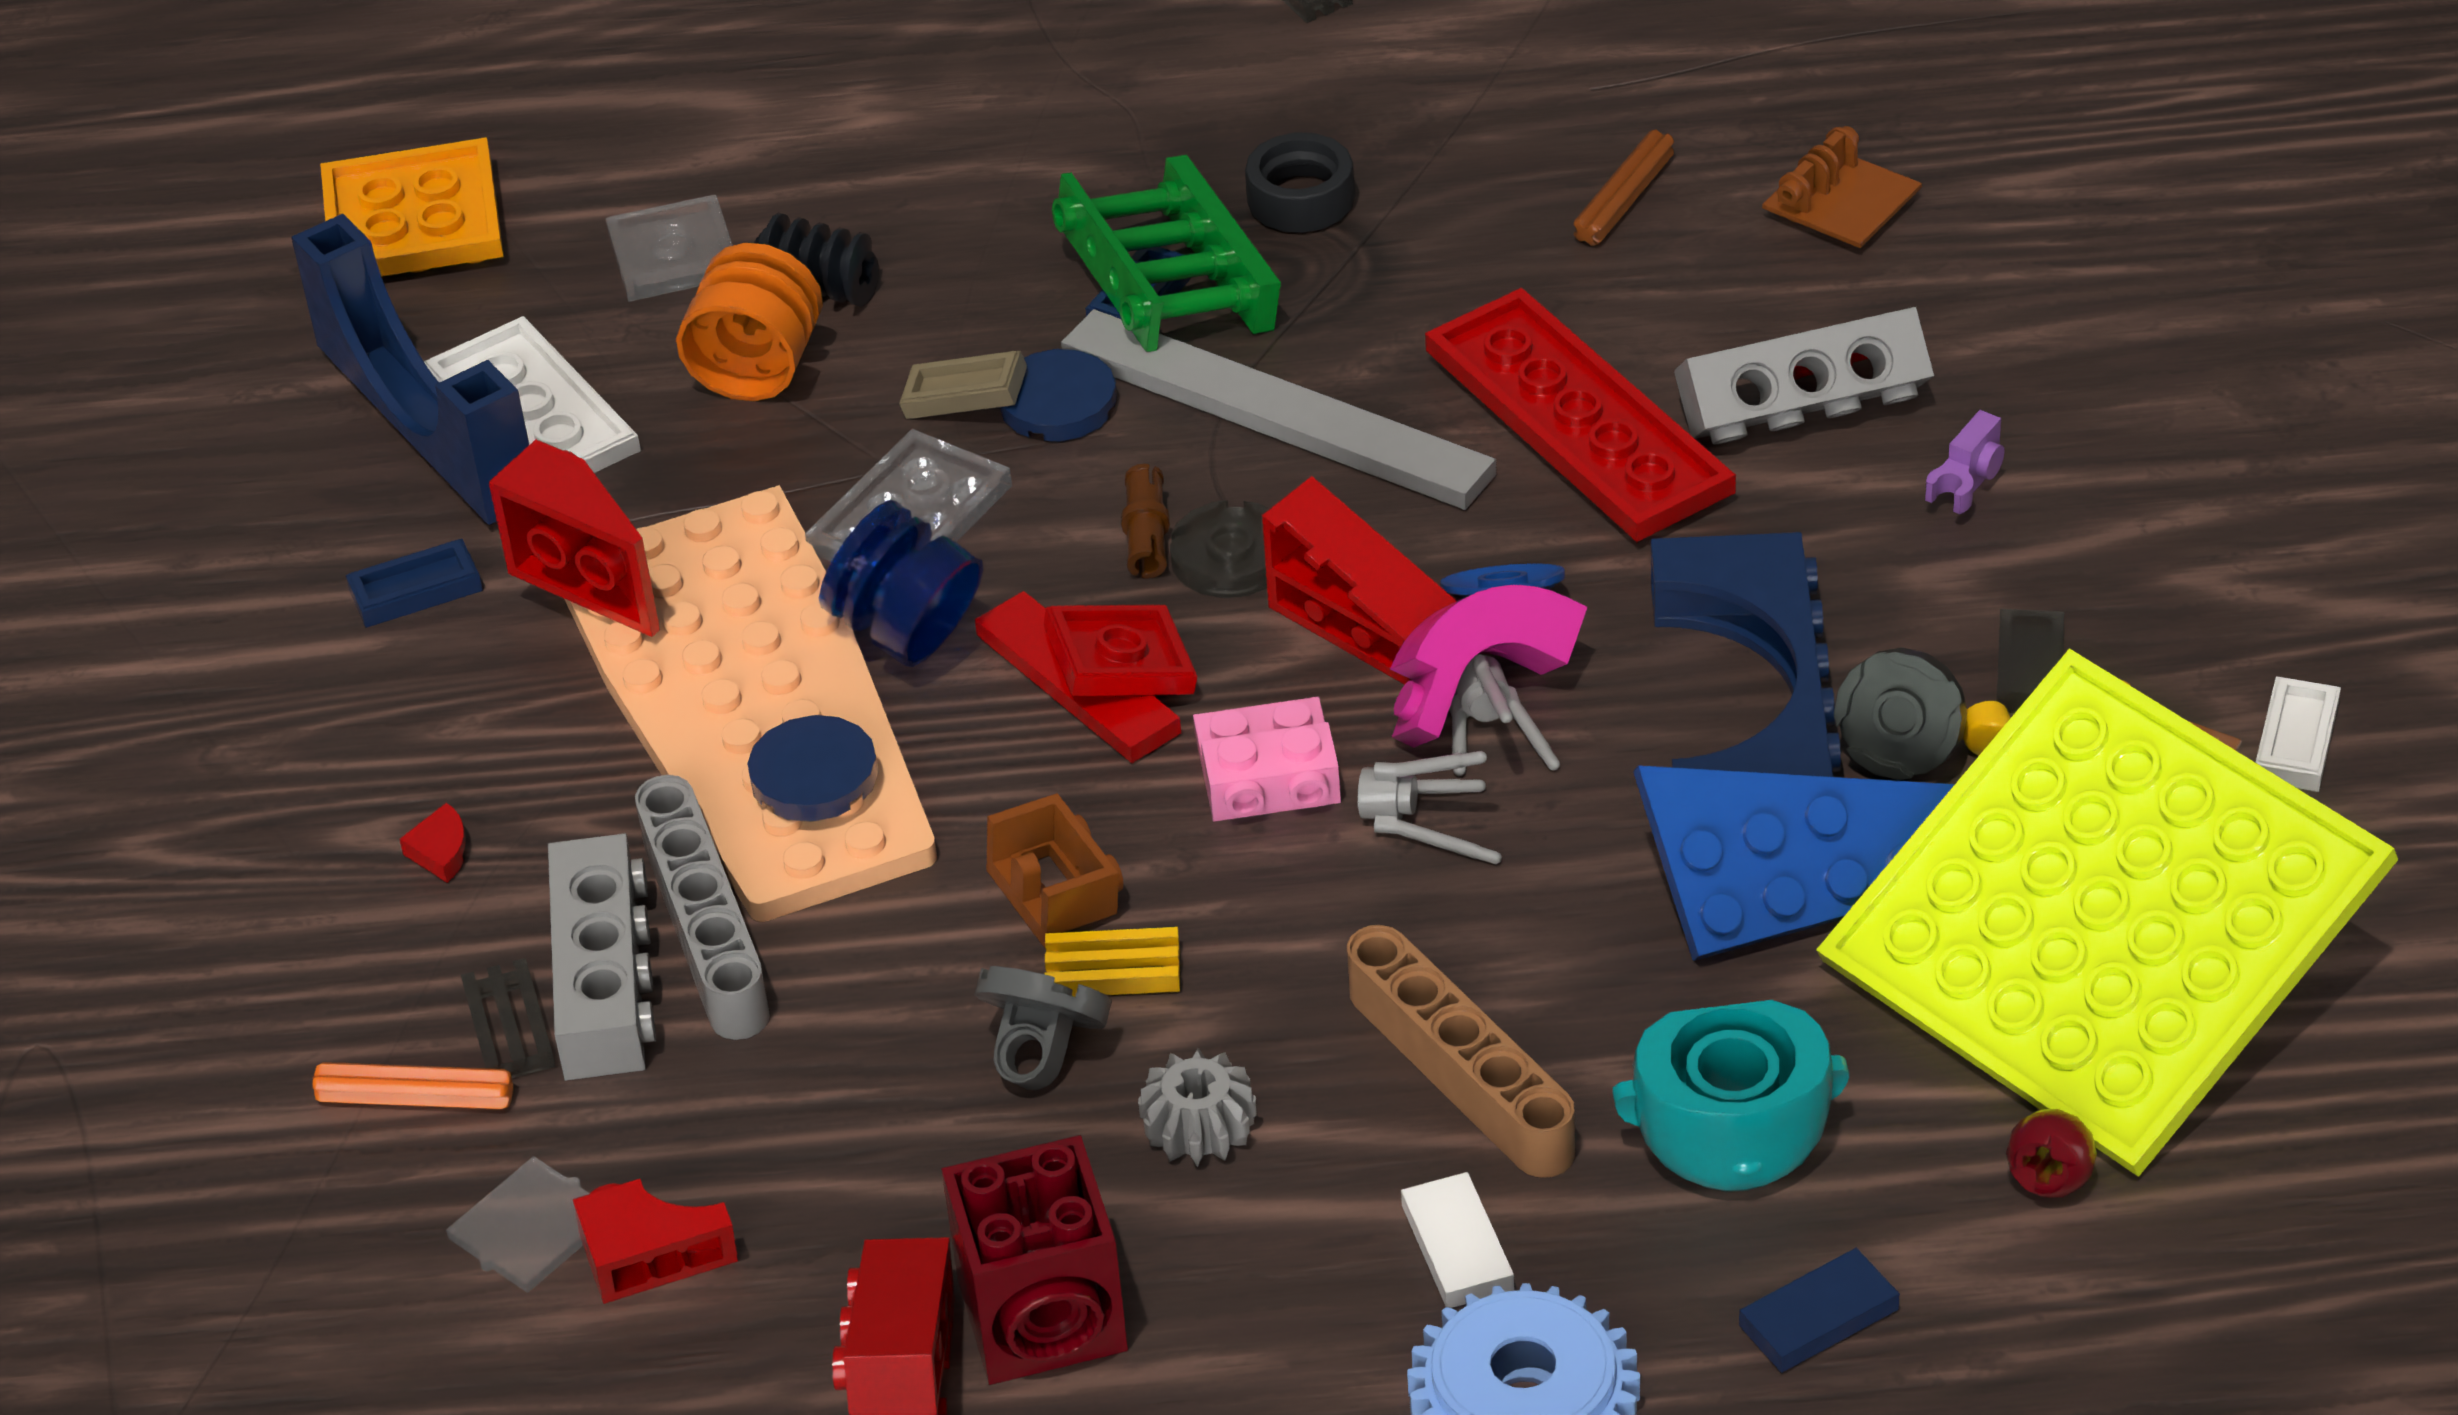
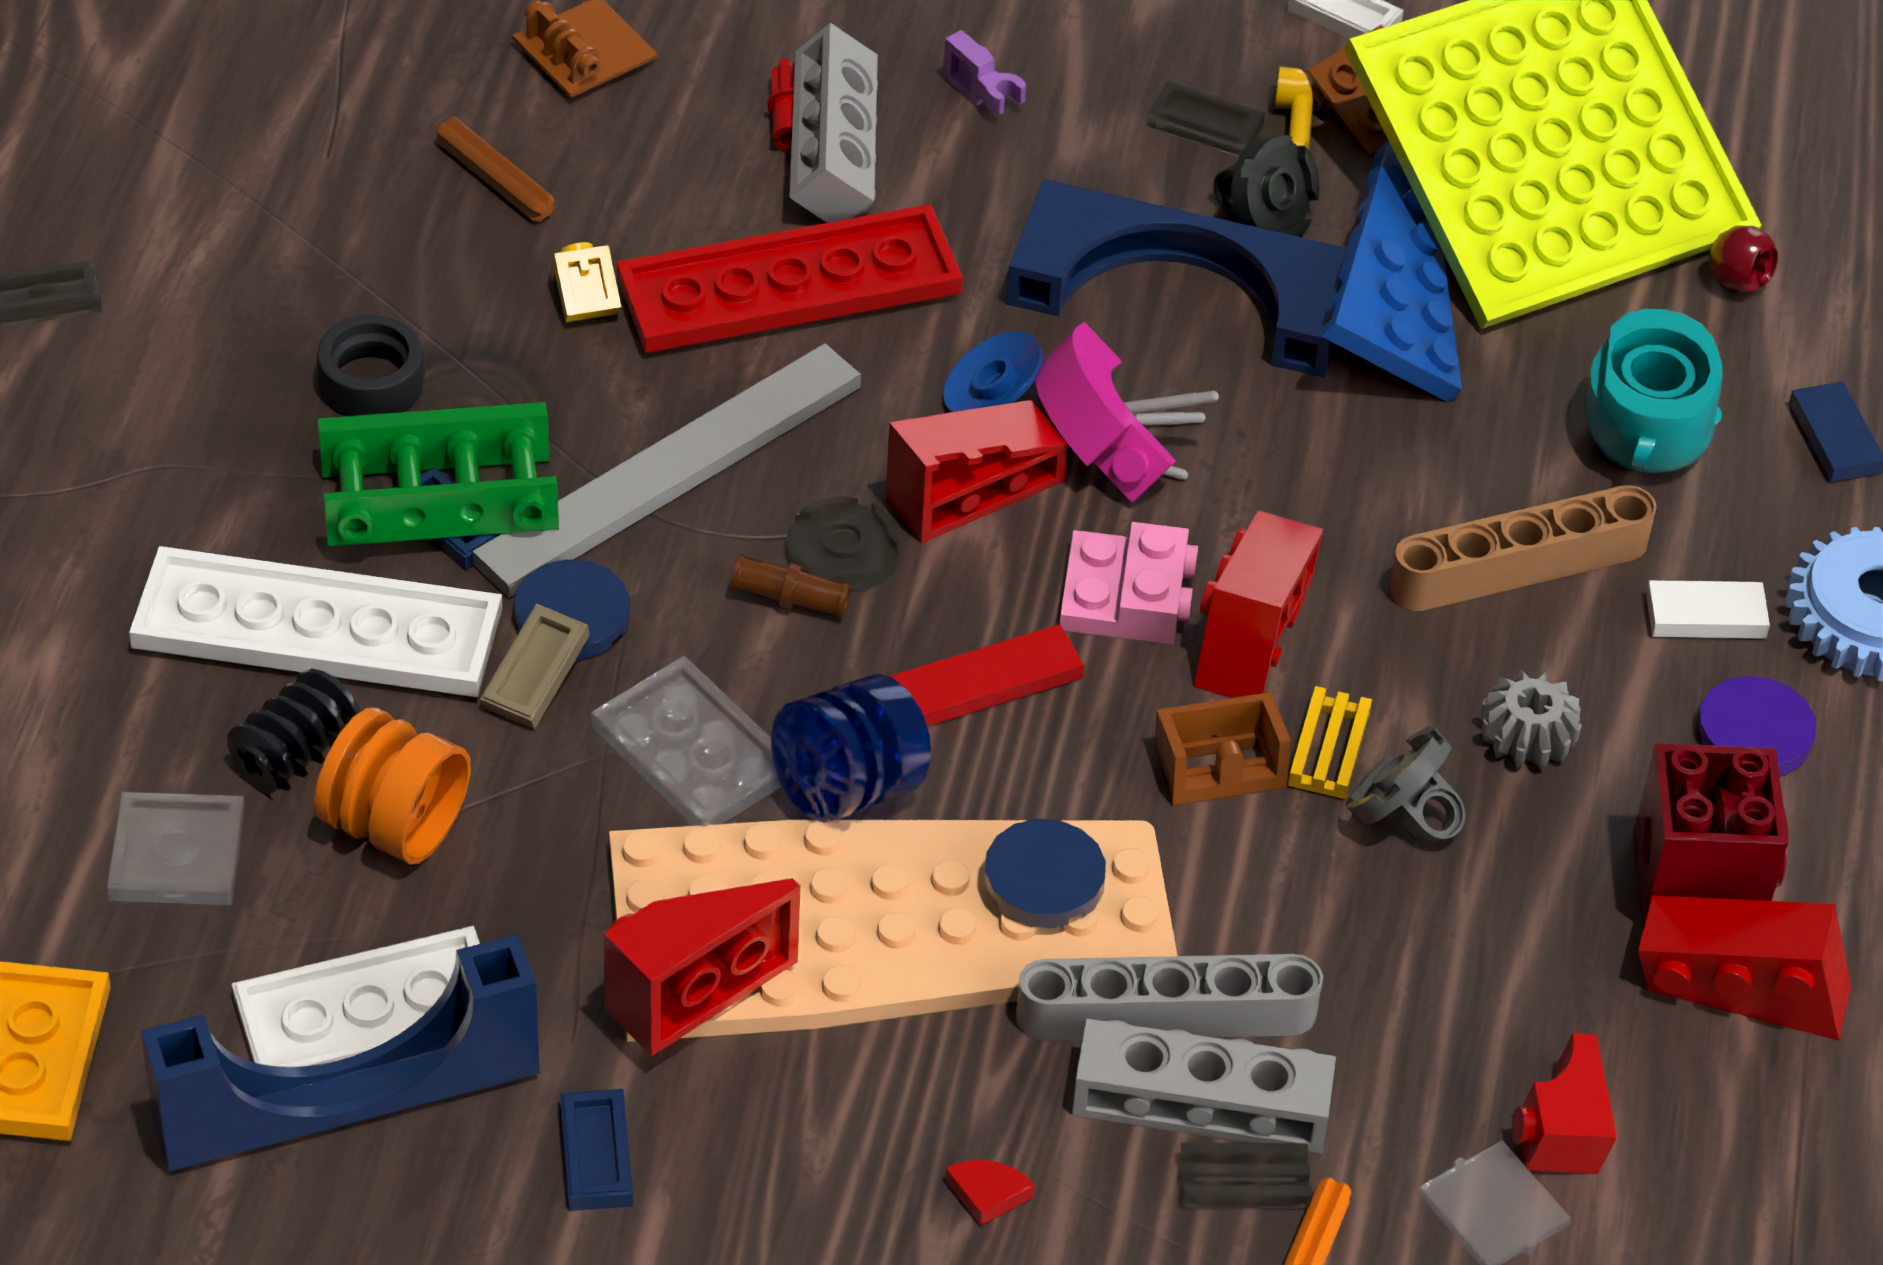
camera: 80 degrees left, 5 degrees up
(963, 244) = (317, 620): none -> white plate
(1119, 650) = (964, 639): red tile -> none
(1266, 840) = (1253, 602): none -> red wedge
(1289, 1316) = (1759, 714): none -> dark purple tile
(1391, 791) = (1213, 514): light grey plant -> none
(1487, 275) = (585, 282): none -> bracket

